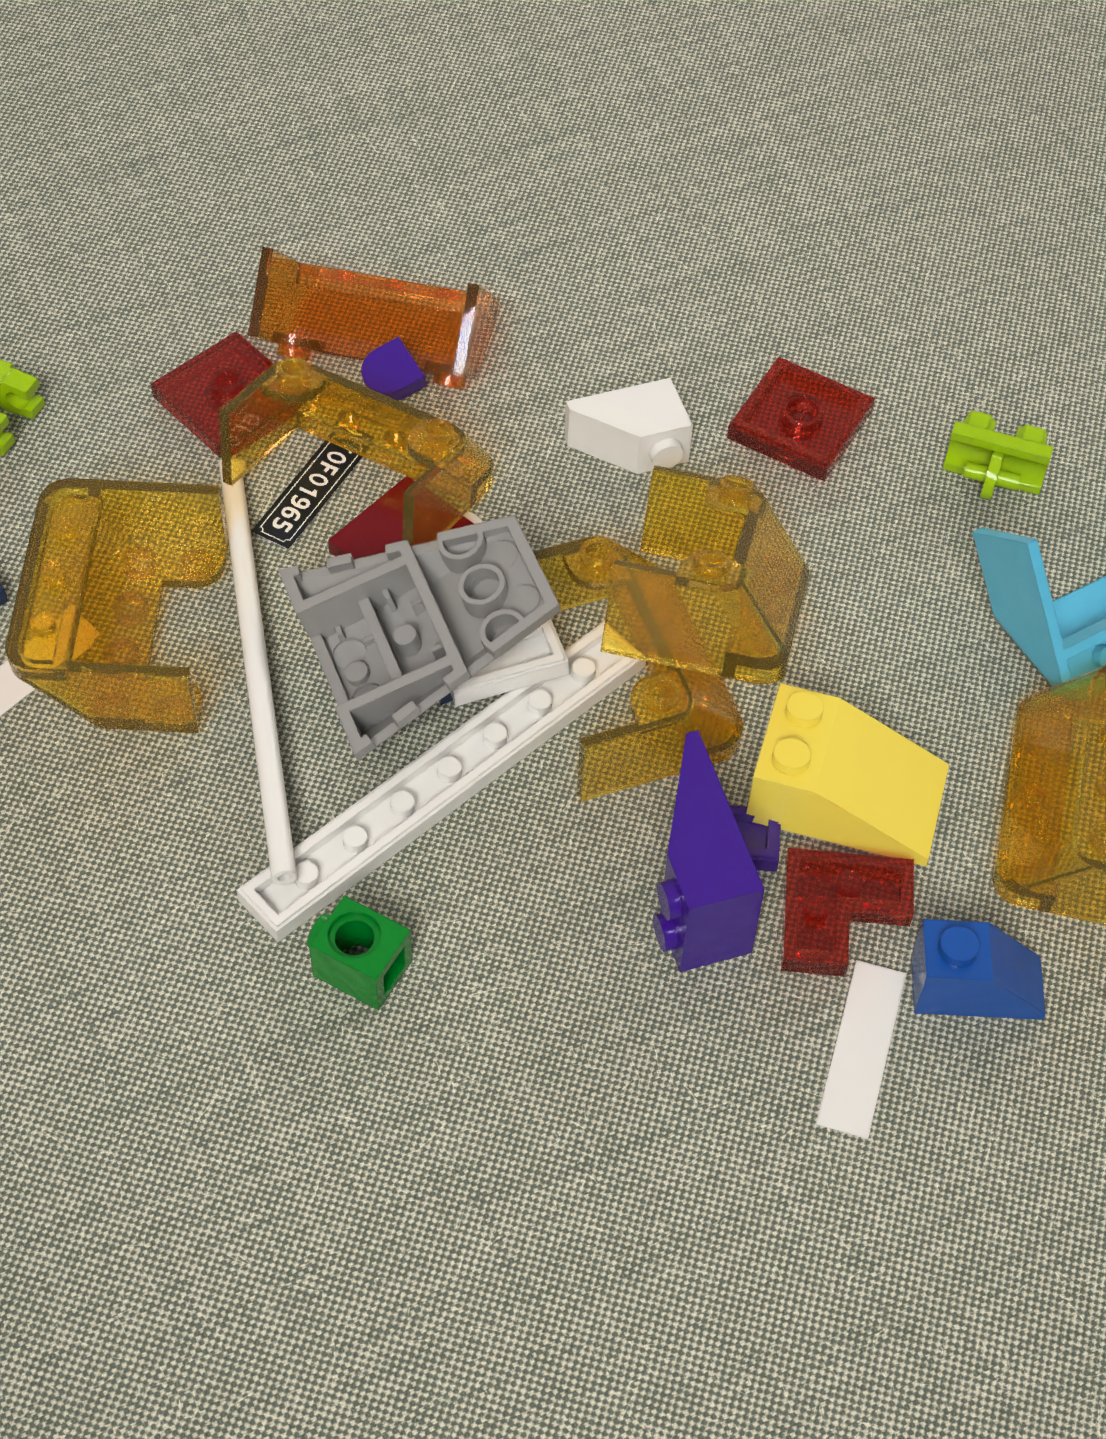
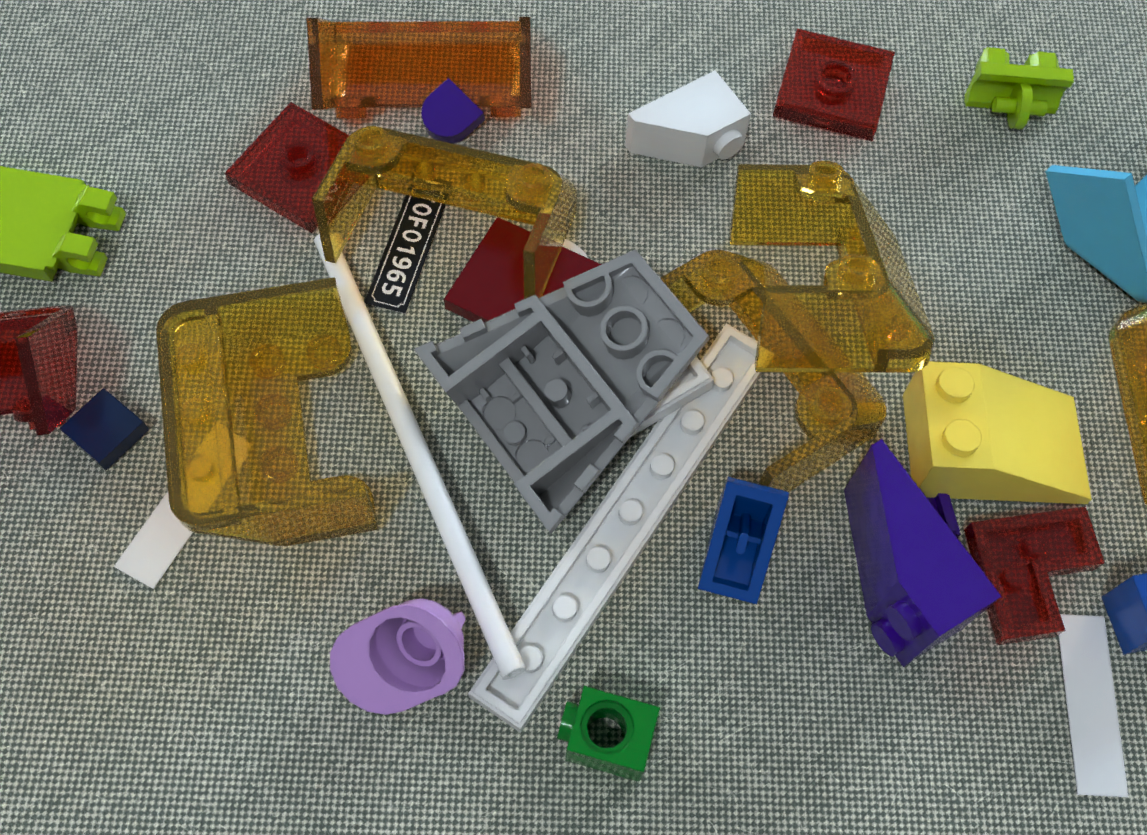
camera: 15 degrees left, 10 degrees up
(179, 837) = (399, 656): none -> lavender piece
(549, 811) = (742, 539): none -> blue slope

